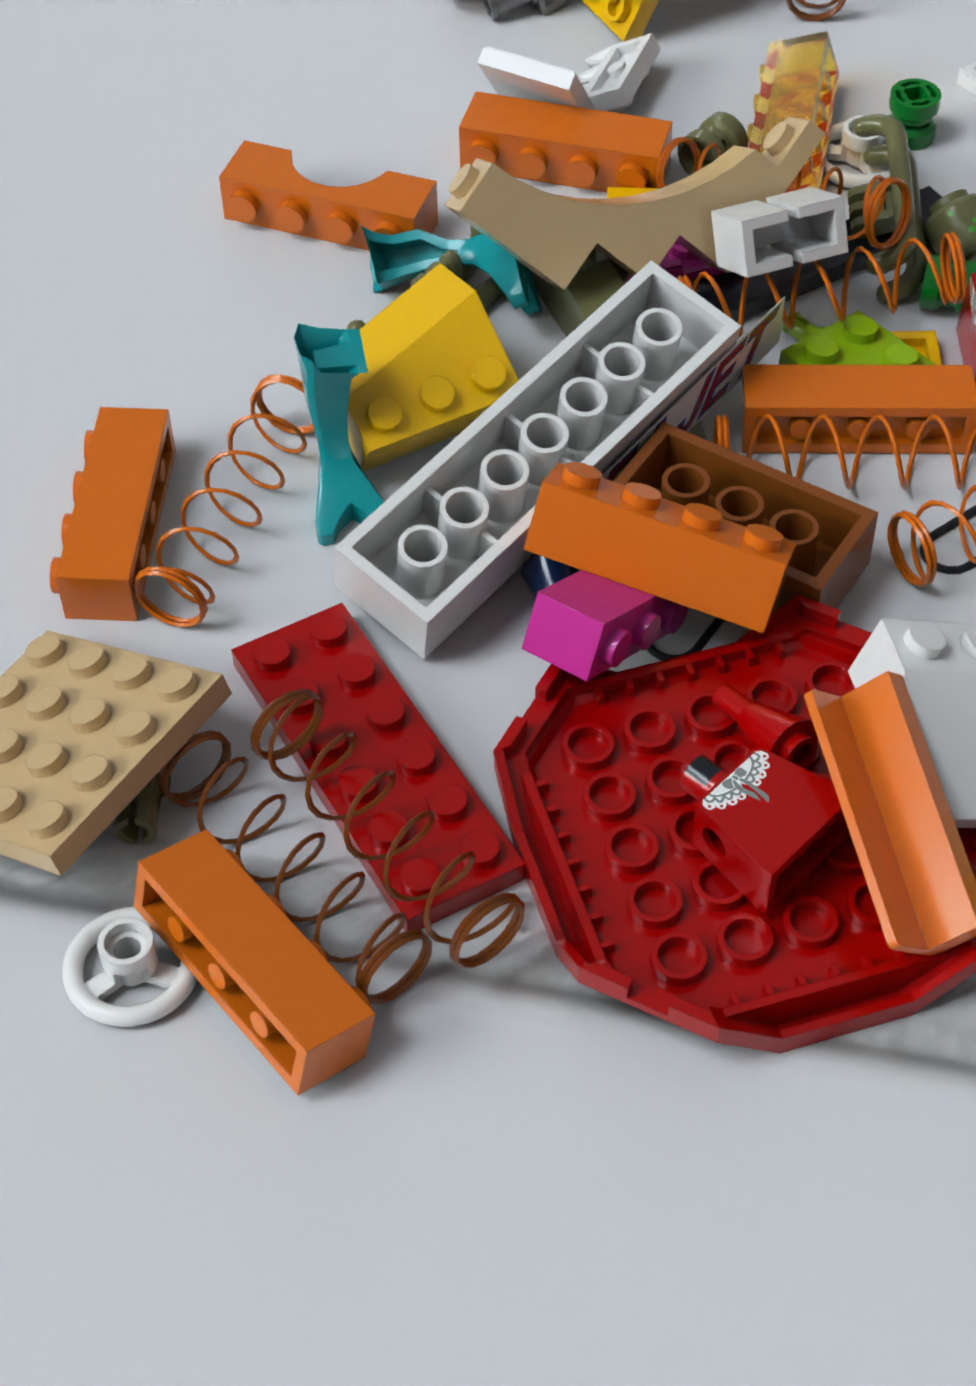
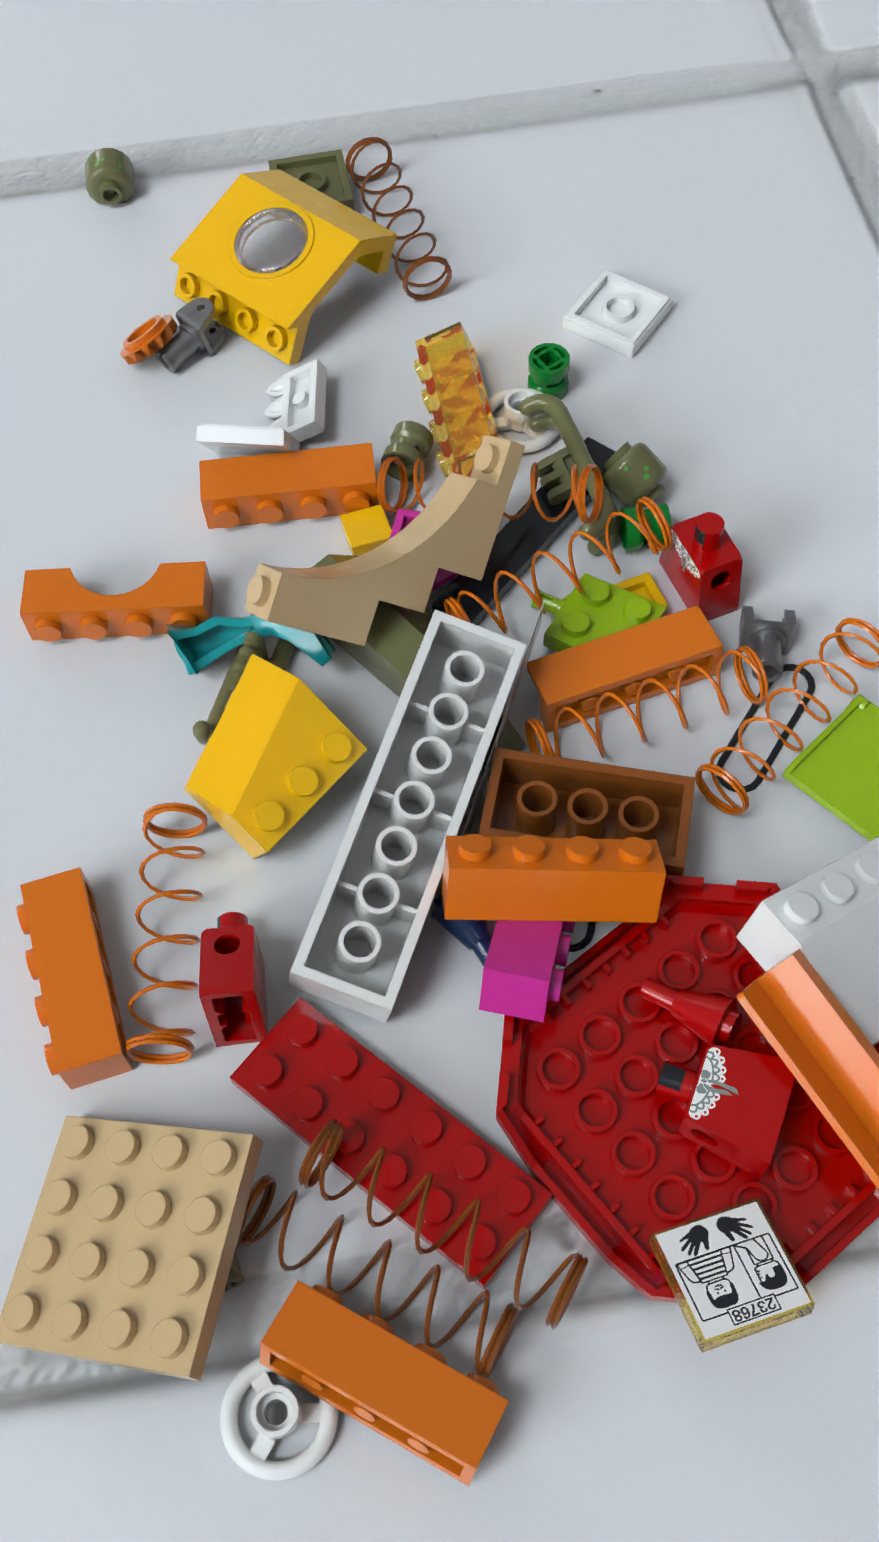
camera: 20 degrees left, 10 degrees up
(278, 543) = (228, 968): none -> red torso
(327, 366) = (218, 806): teal animal -> none
(678, 973) = (730, 1275): none -> tile
(796, 224) = (526, 529): white piece -> none

